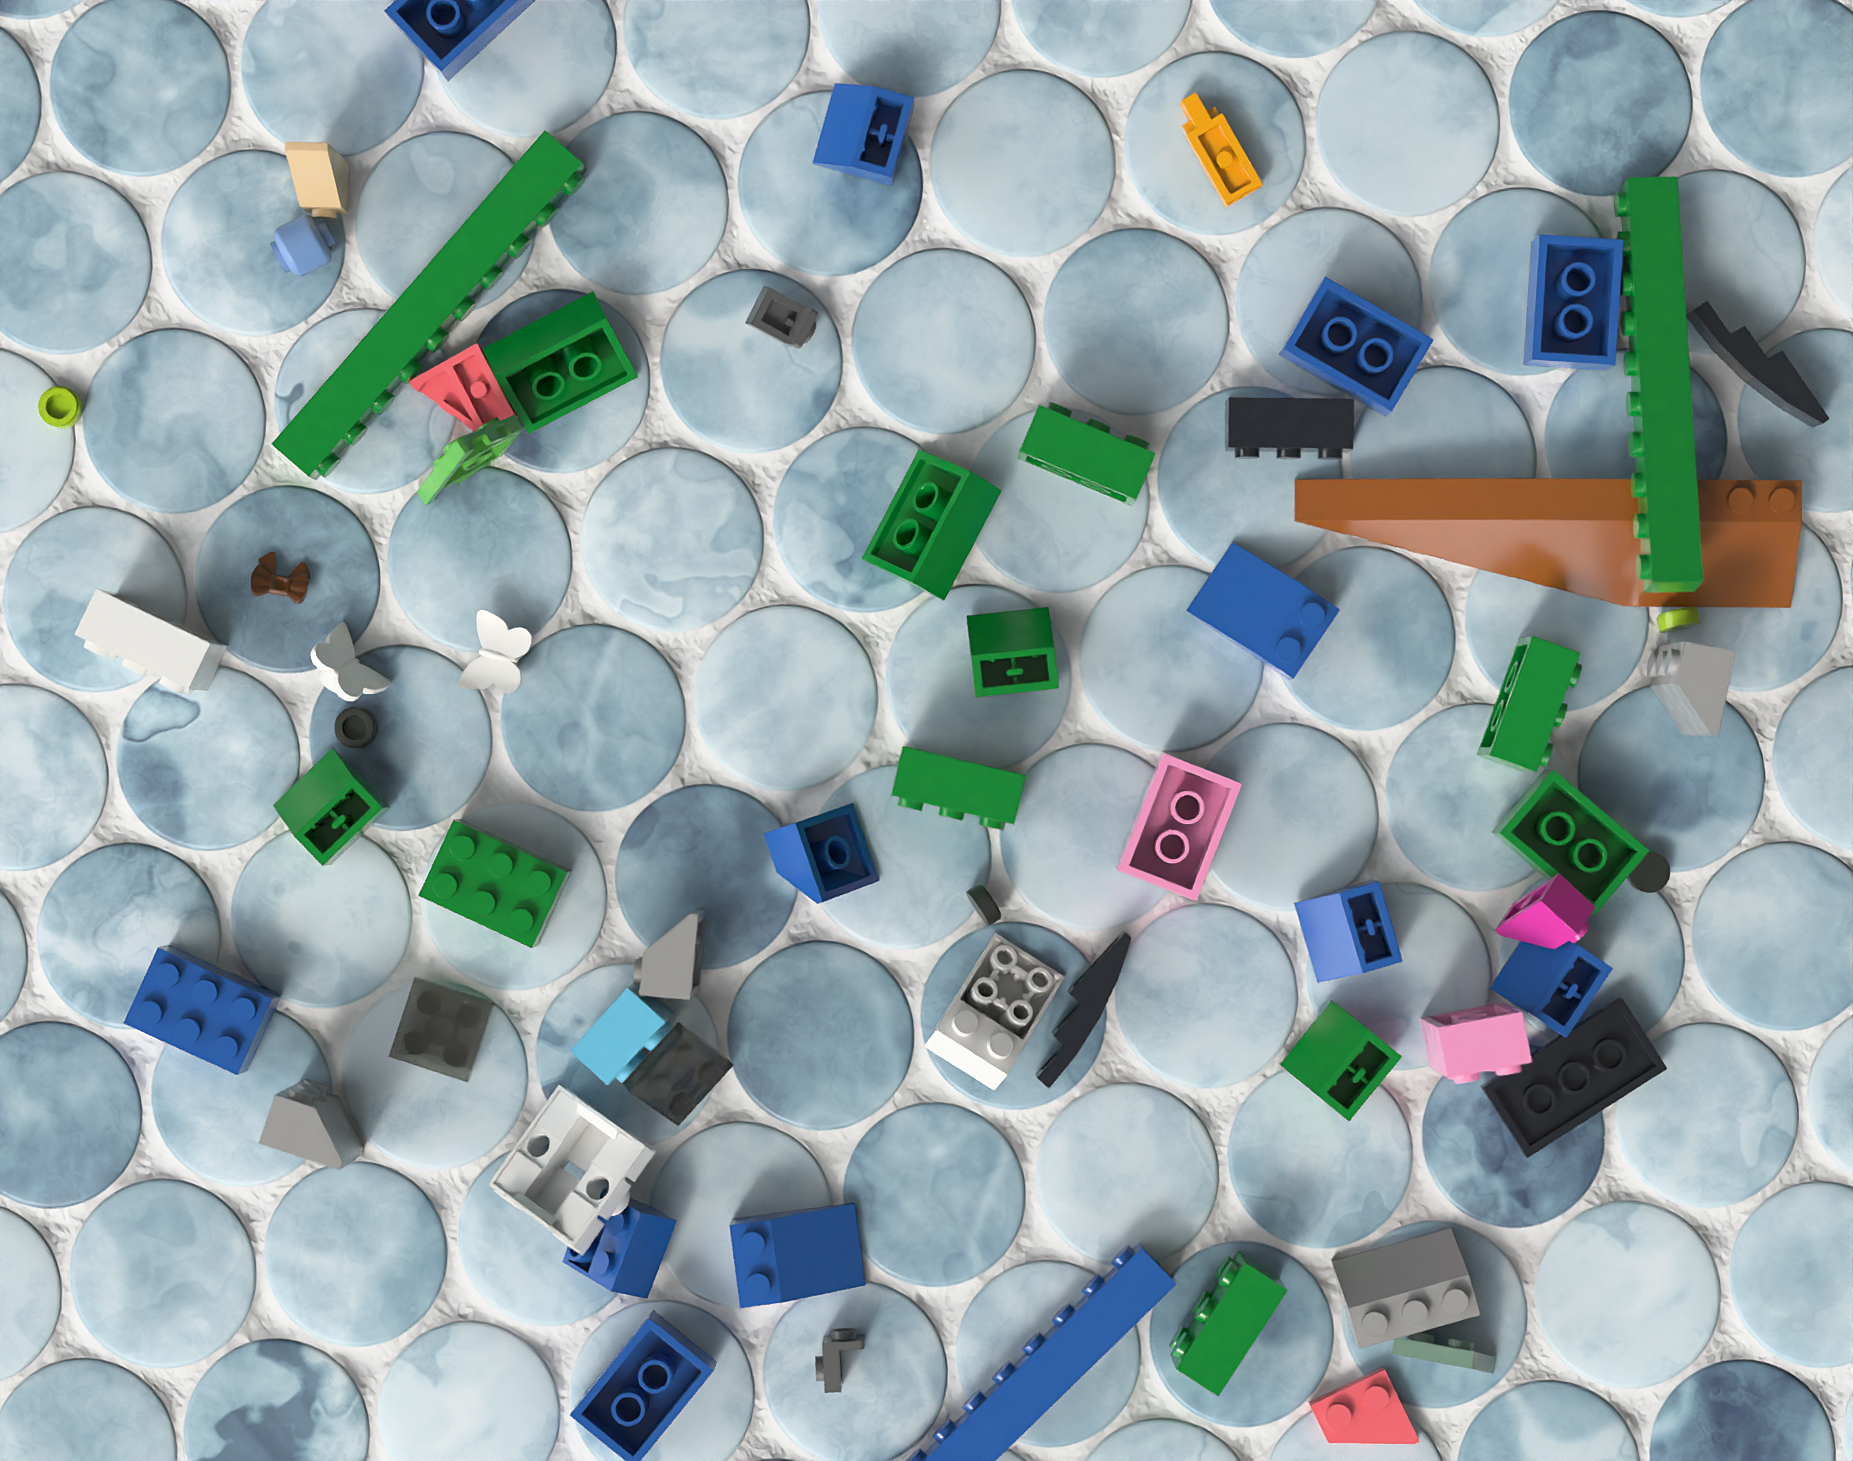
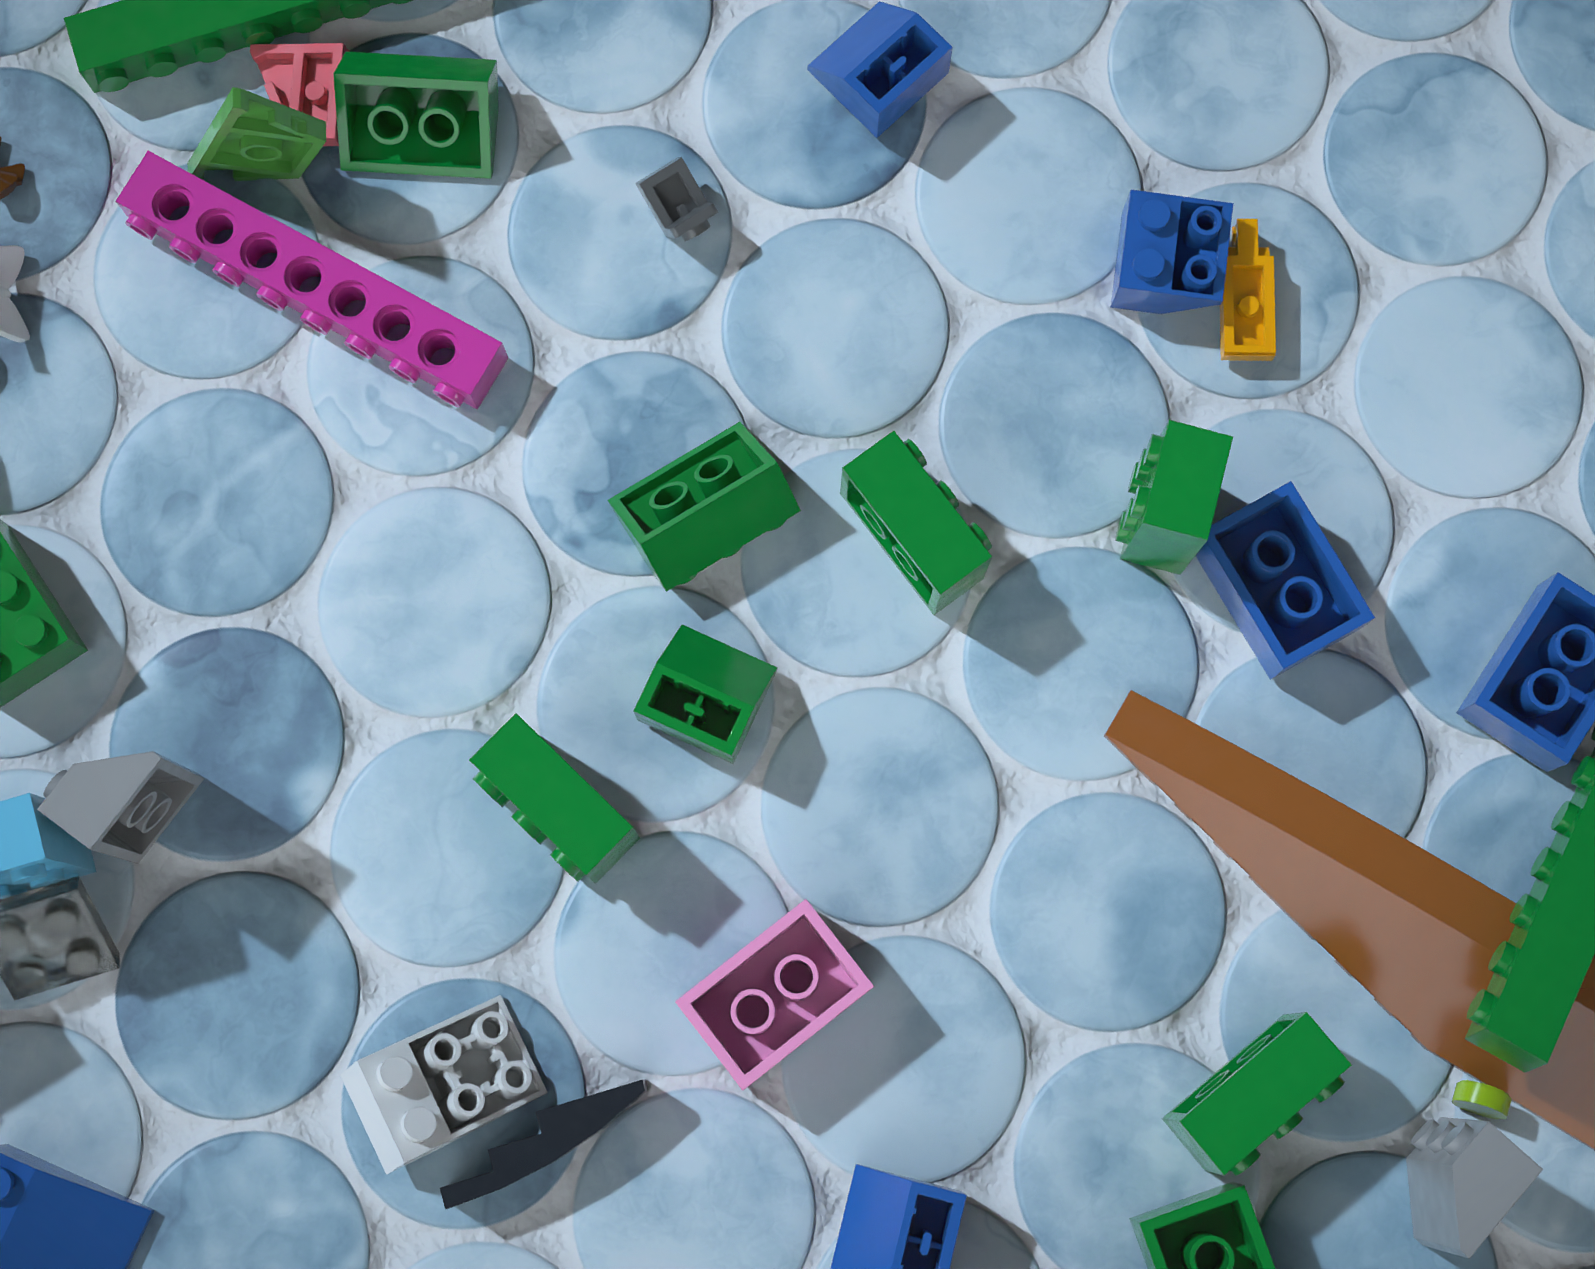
camera: 30 degrees right, 10 degrees down
(415, 522) = (162, 187): none -> dark pink brick
(497, 656) = (157, 373): white animal -> none
(823, 854) = (364, 790): blue slope -> none
(984, 904) = (506, 954): pearl dark grey tile -> none
(1150, 154) = (1171, 253): none -> blue slope
(1252, 337) = (1174, 497): none -> green brick
(1263, 611) = (1012, 811): blue slope -> none
(1289, 427) = (1158, 626): black brick -> none

